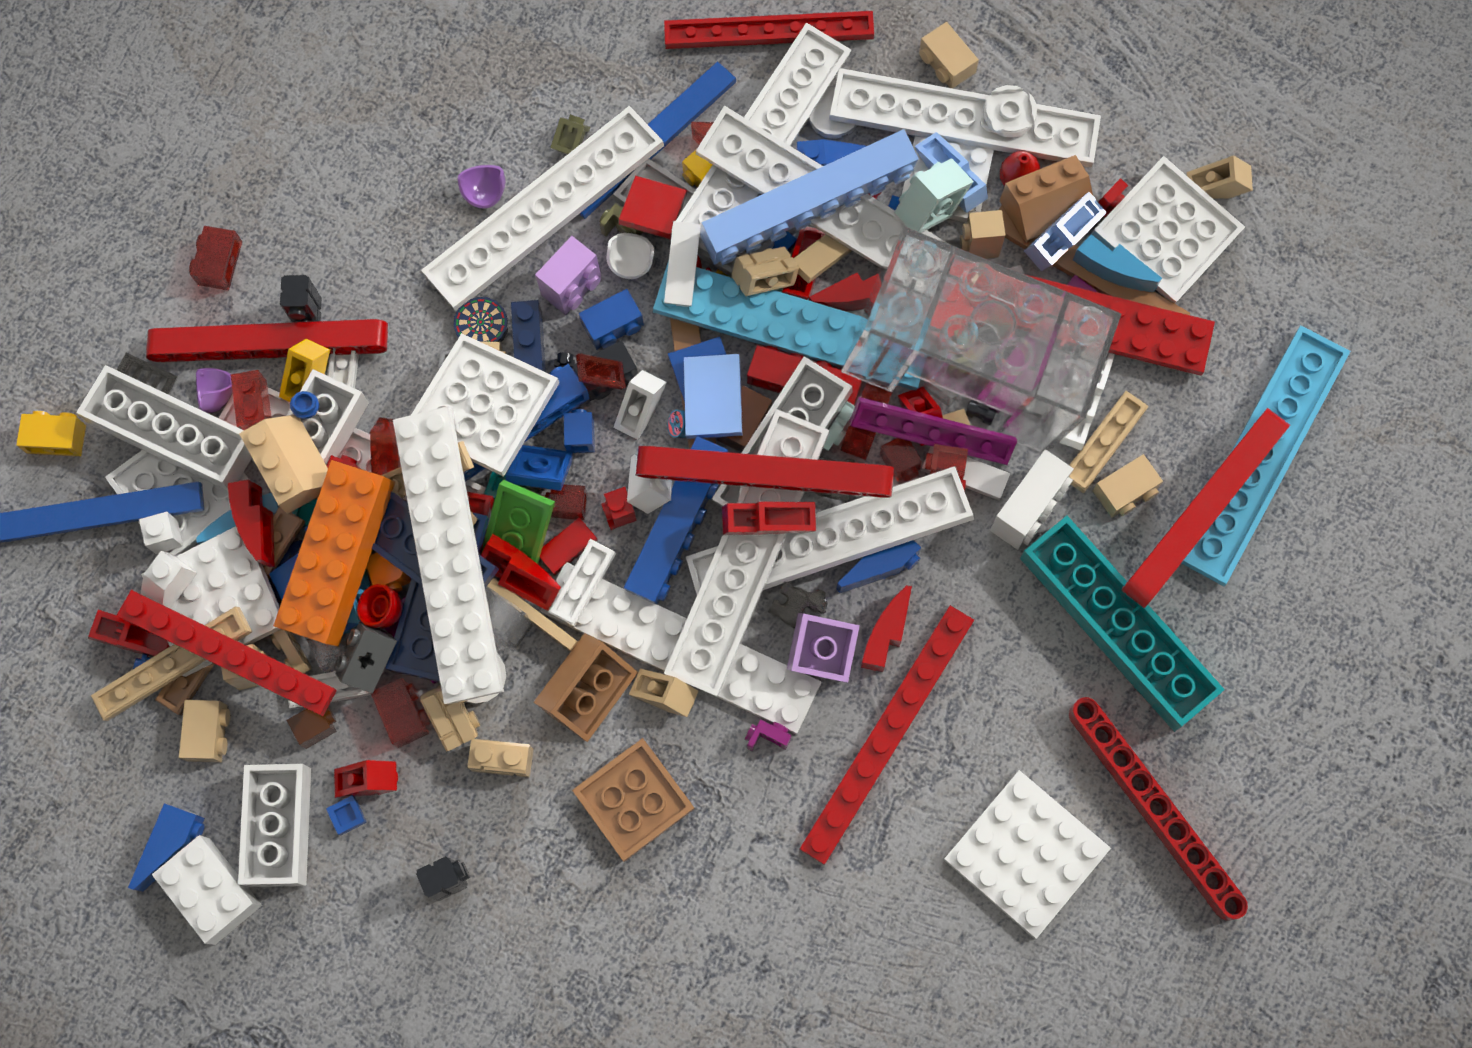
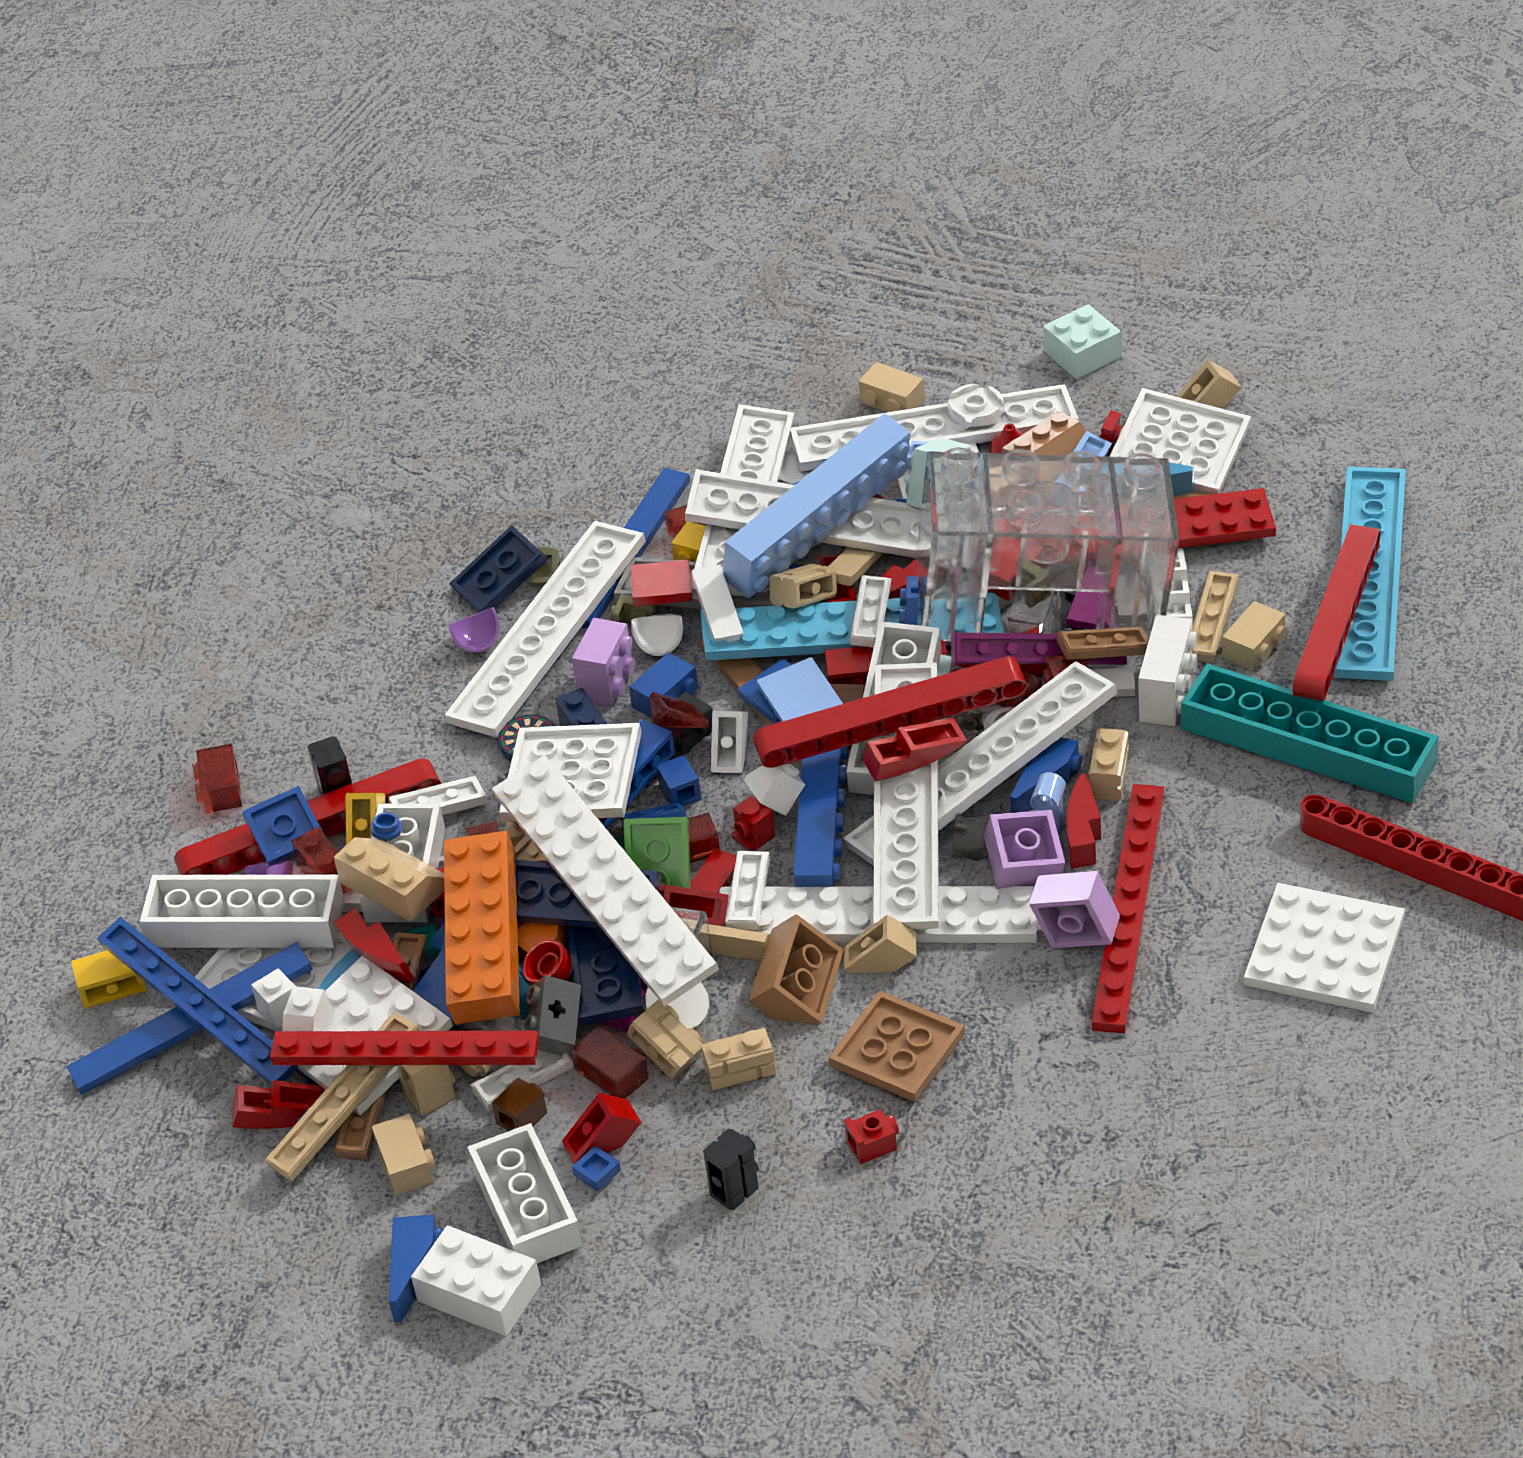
camera: 20 degrees left, 30 degrees down
(92, 500) = (193, 999): none -> blue plate
(235, 348) = (278, 822): none -> blue plate
(377, 364) = (452, 795): none -> white plate
(528, 126) = (498, 570): none -> dark blue tile
(560, 887) = (871, 1135): none -> red brick
(765, 29) = (693, 431): red plate -> none
(774, 733) = (1009, 943): magenta bracket -> none
(811, 322) = (870, 609): none -> white tile
(832, 737) = (1074, 909): none -> lavender brick
(847, 326) = (909, 598): none -> blue wing
(865, 604) = (1049, 796): none -> light blue piece
(938, 577) = (1109, 764): none -> tan brick
(990, 450) = (1103, 643): none -> medium nougat tile
(1139, 70) = (1082, 341): none -> light aqua brick

